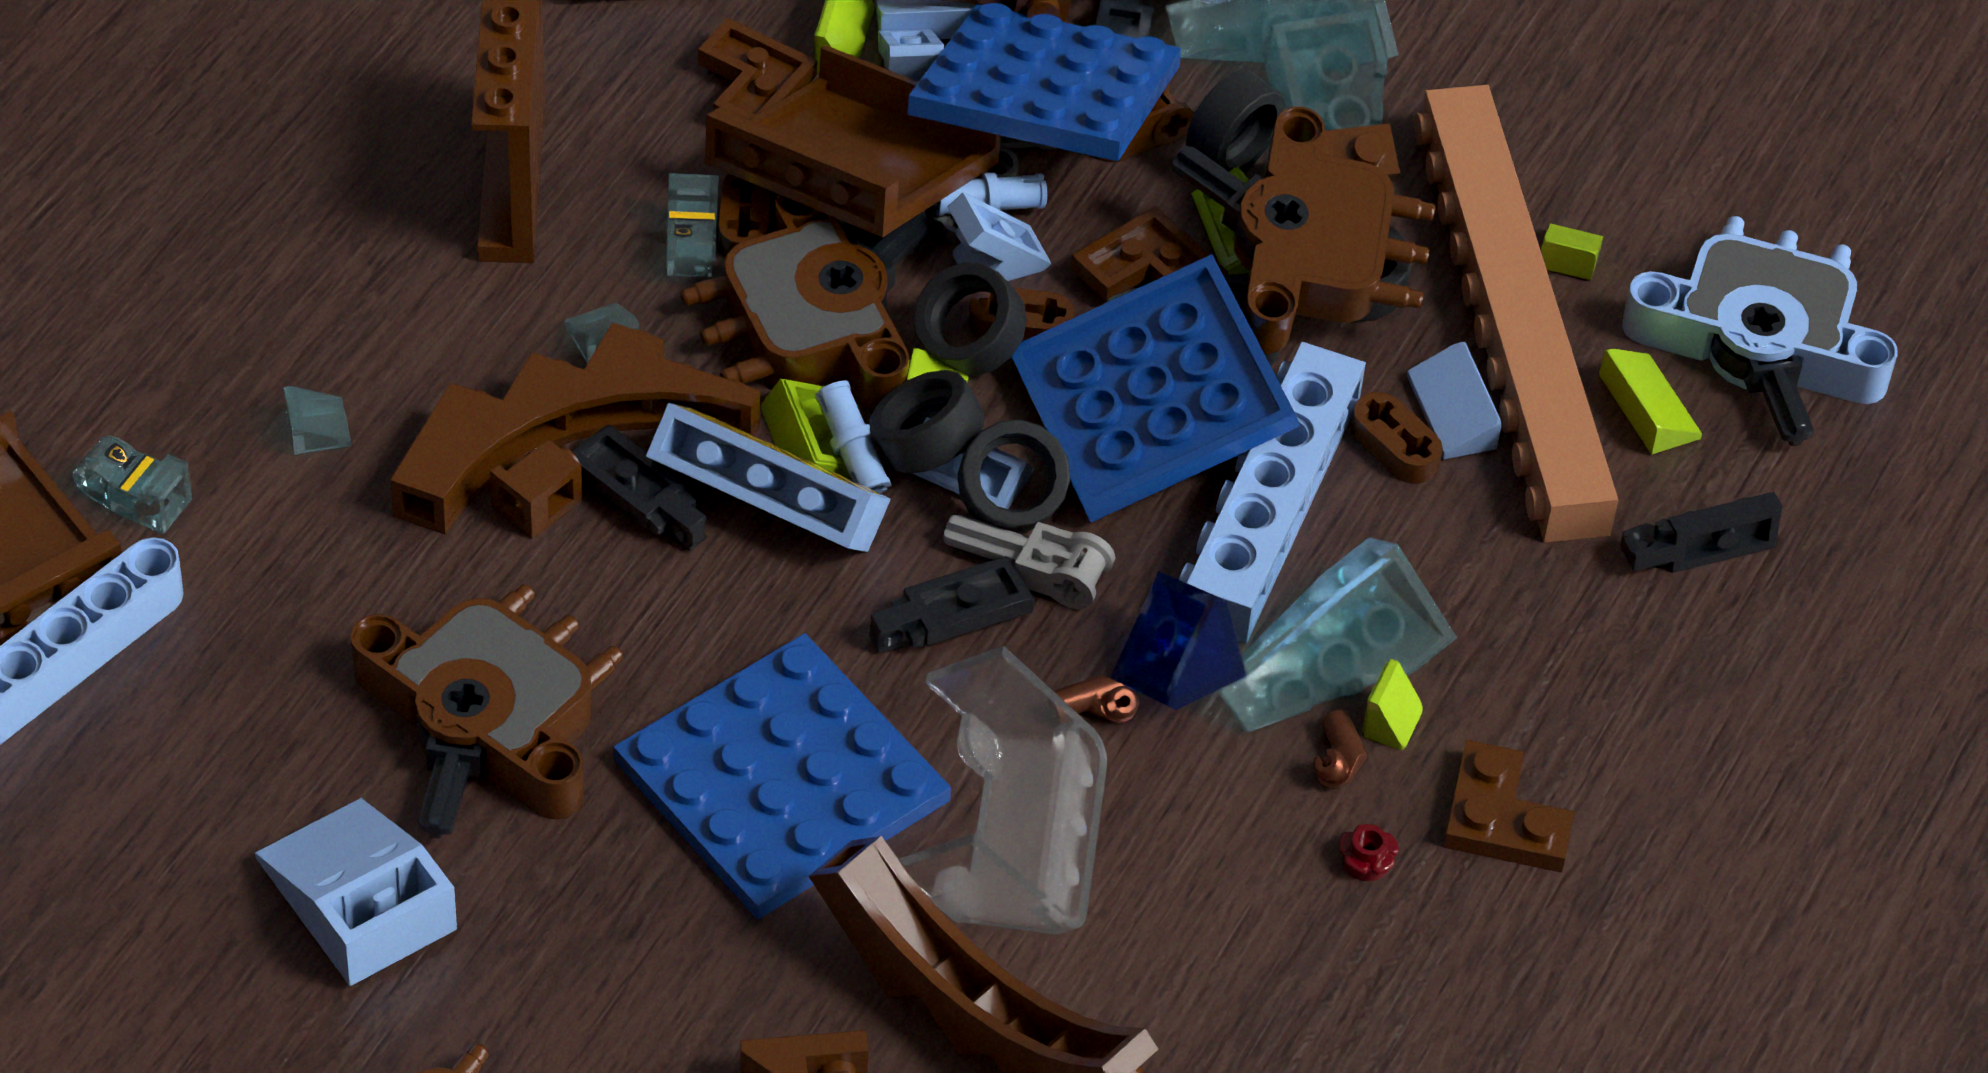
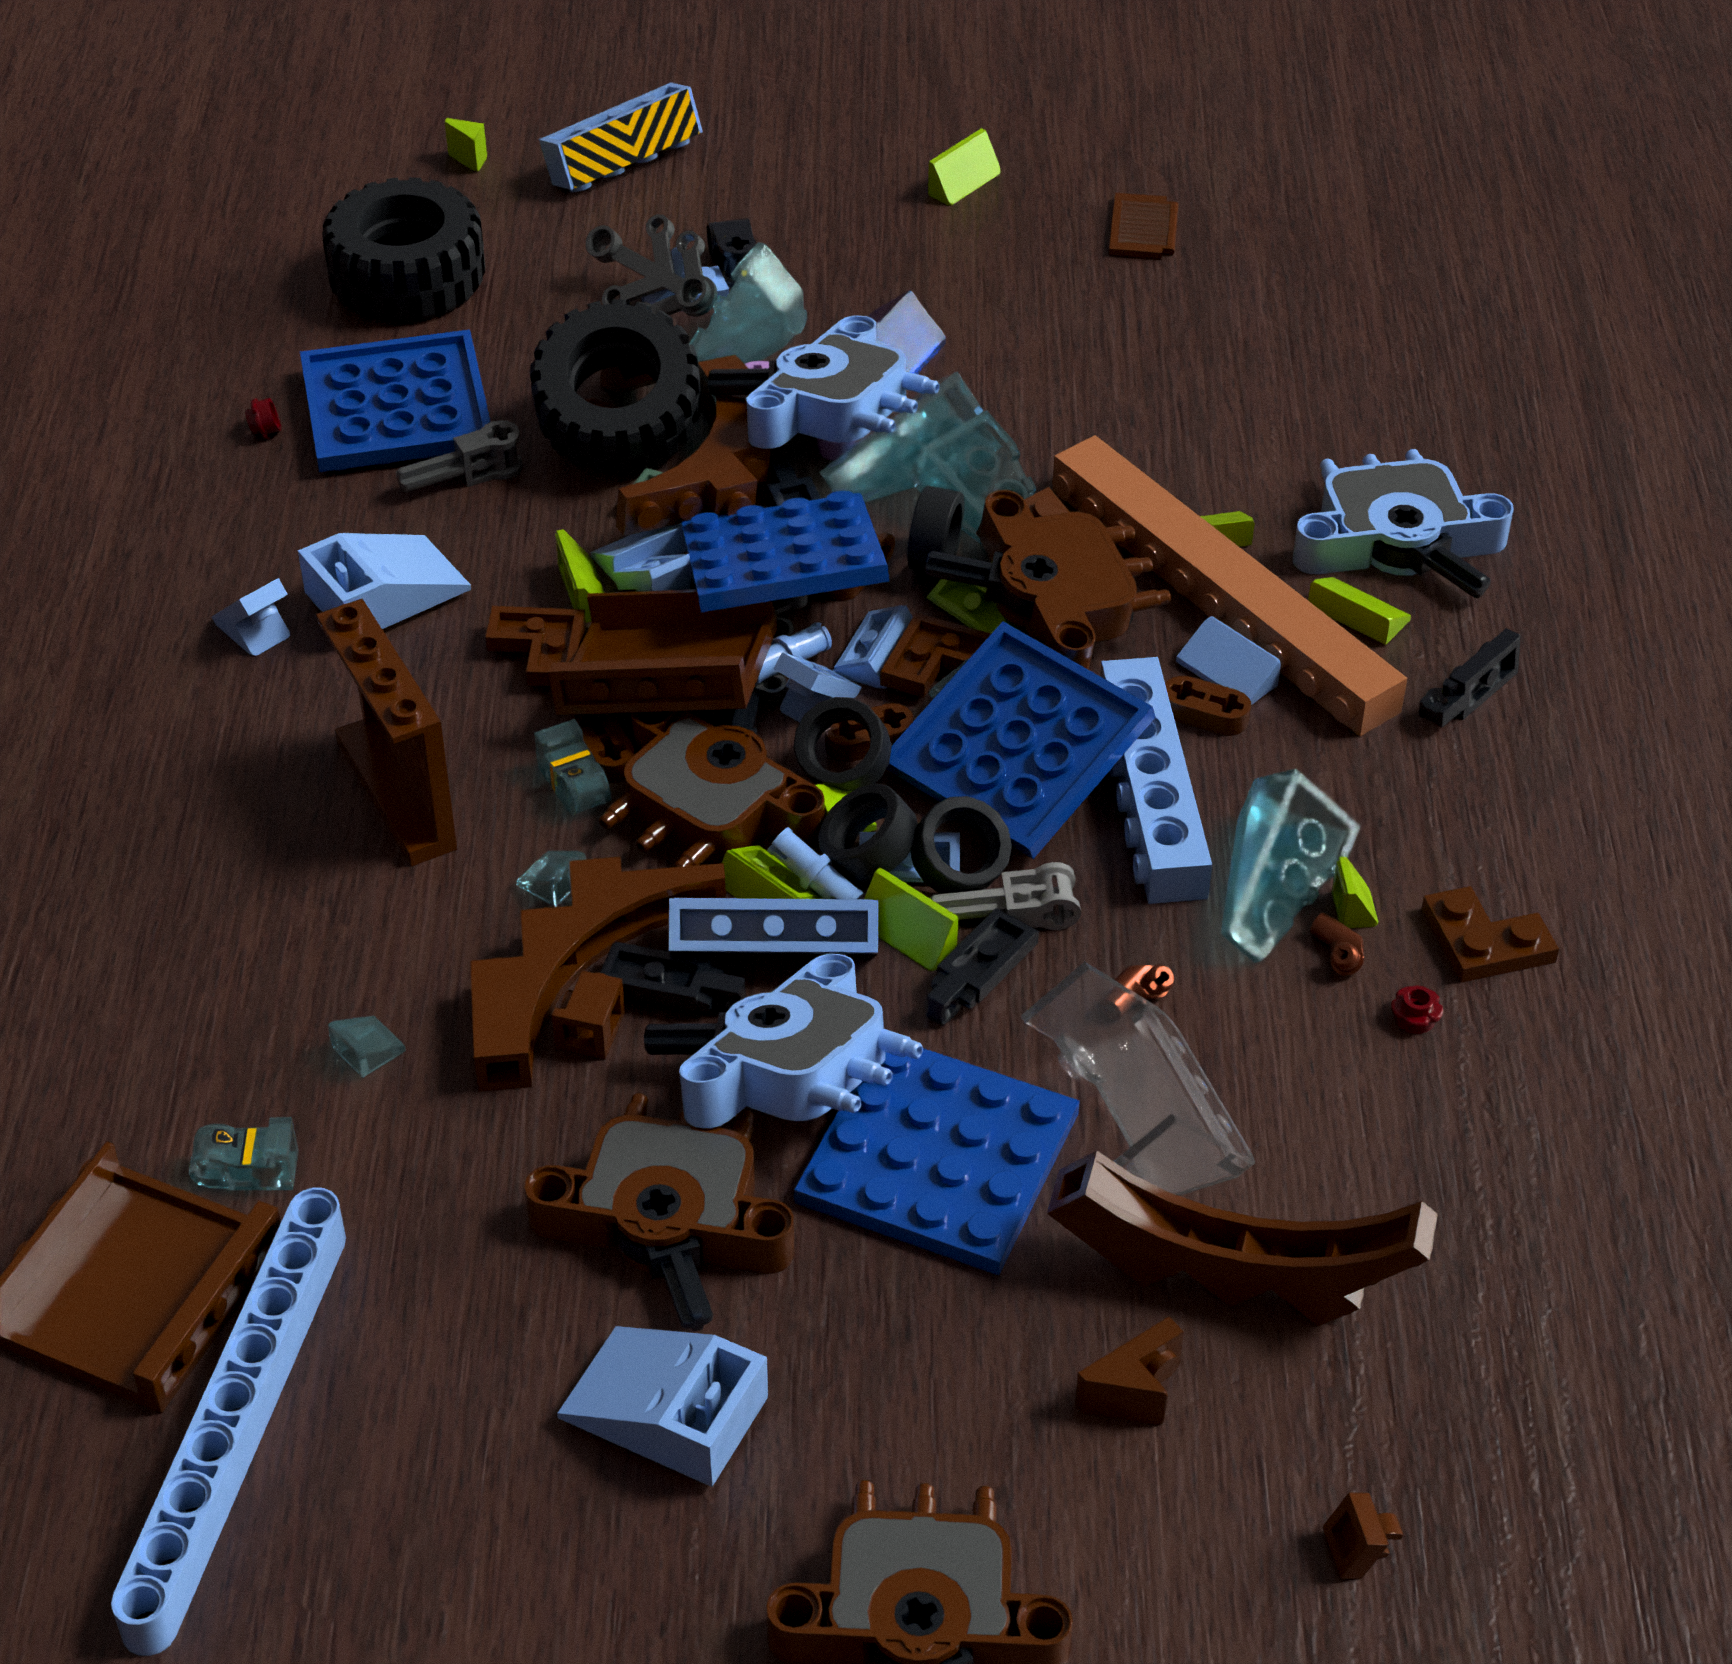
camera: 25 degrees left, 5 degrees down
(685, 603) = (784, 1049): none -> light blue piece
(915, 530) = (912, 921): none -> lime slope
(1092, 221) = (873, 645): none -> light blue slope
(1180, 645) = (1182, 912): clear blue slope -> none

